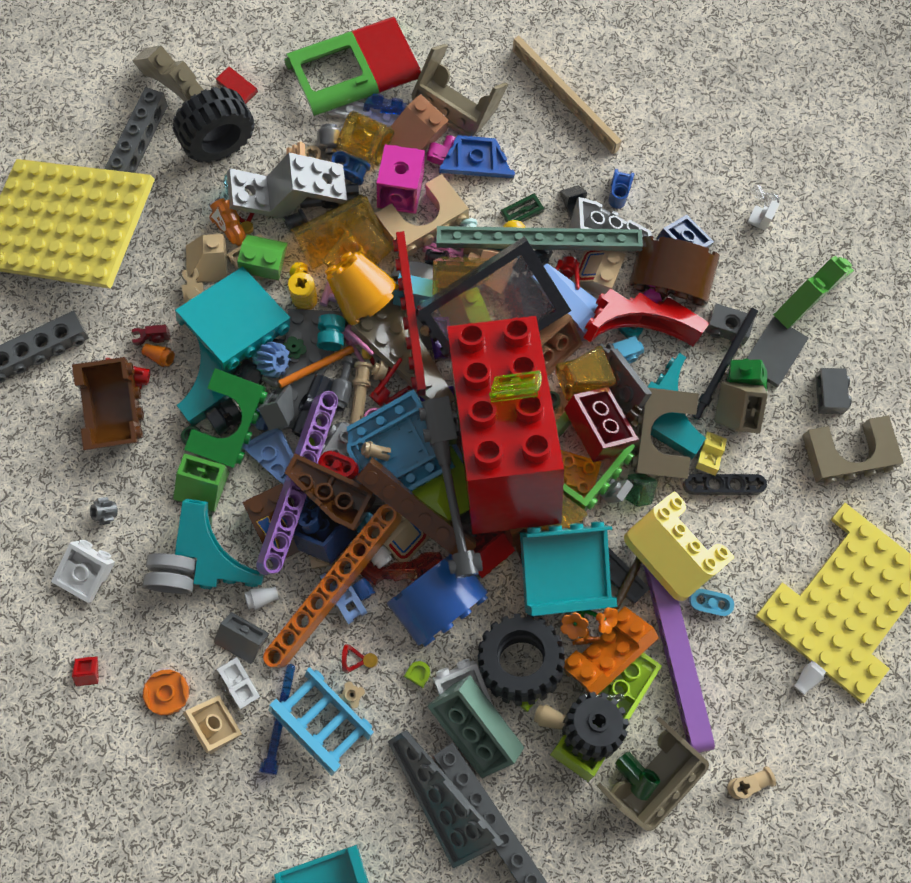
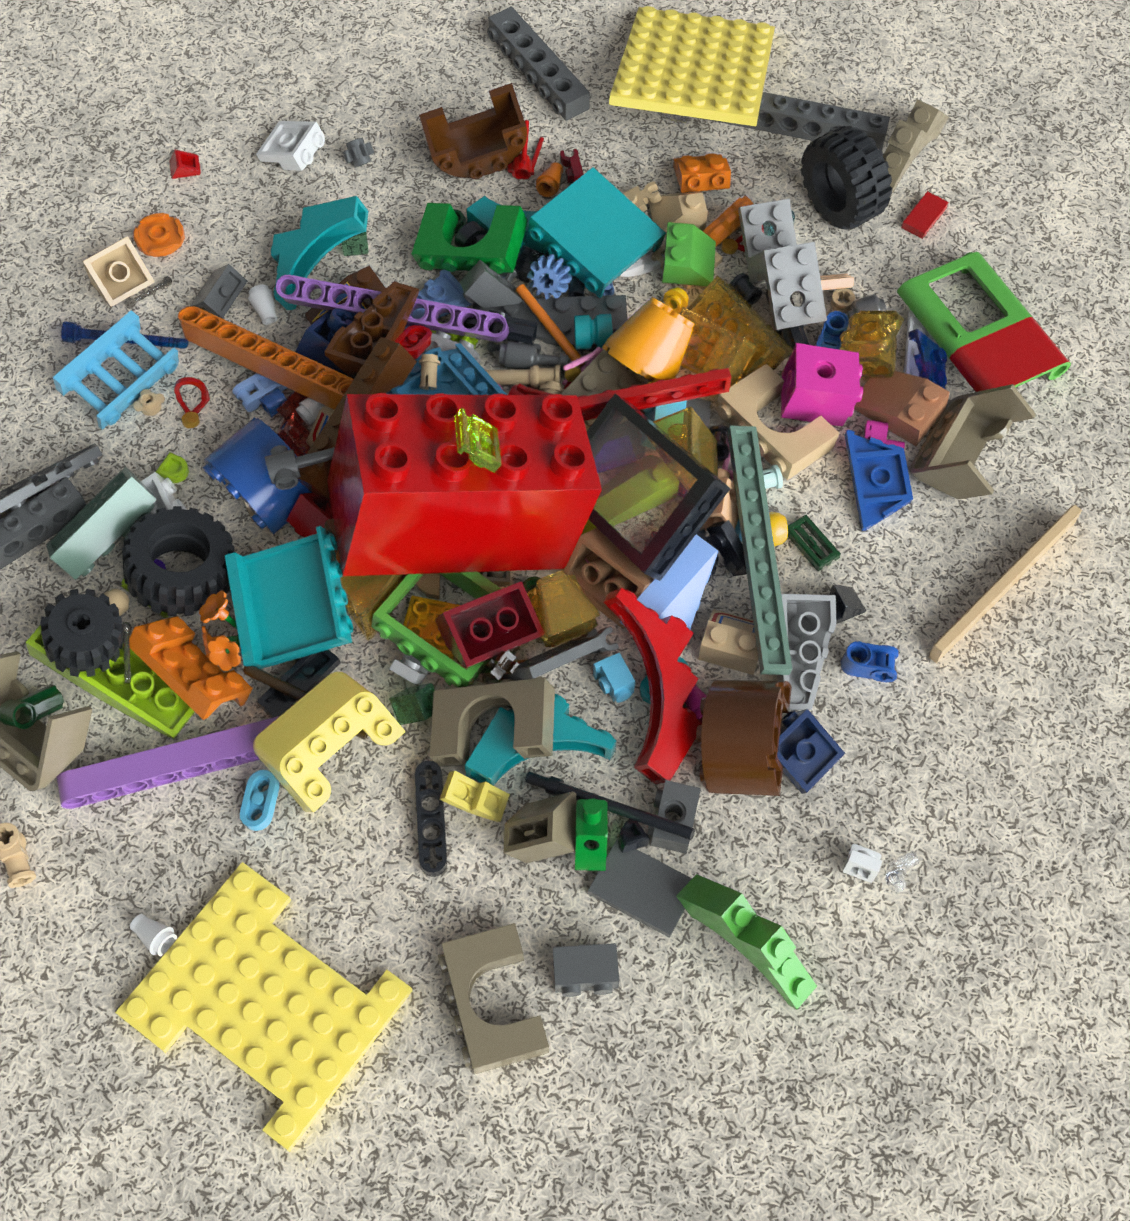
camera: 90 degrees right, 10 degrees down
(169, 573) = (282, 210): light grey wheel -> none
(172, 235) = (702, 172): none -> orange plate
(200, 481) = (395, 231): bright green slope -> none
(238, 682) = (162, 300): white slope -> none
(299, 349) = (572, 302): dark green plant -> none
(302, 291) = (642, 287): yellow piece -> none
(568, 267) = (727, 598): red plant -> none
(744, 352) = (632, 836): none -> black tile

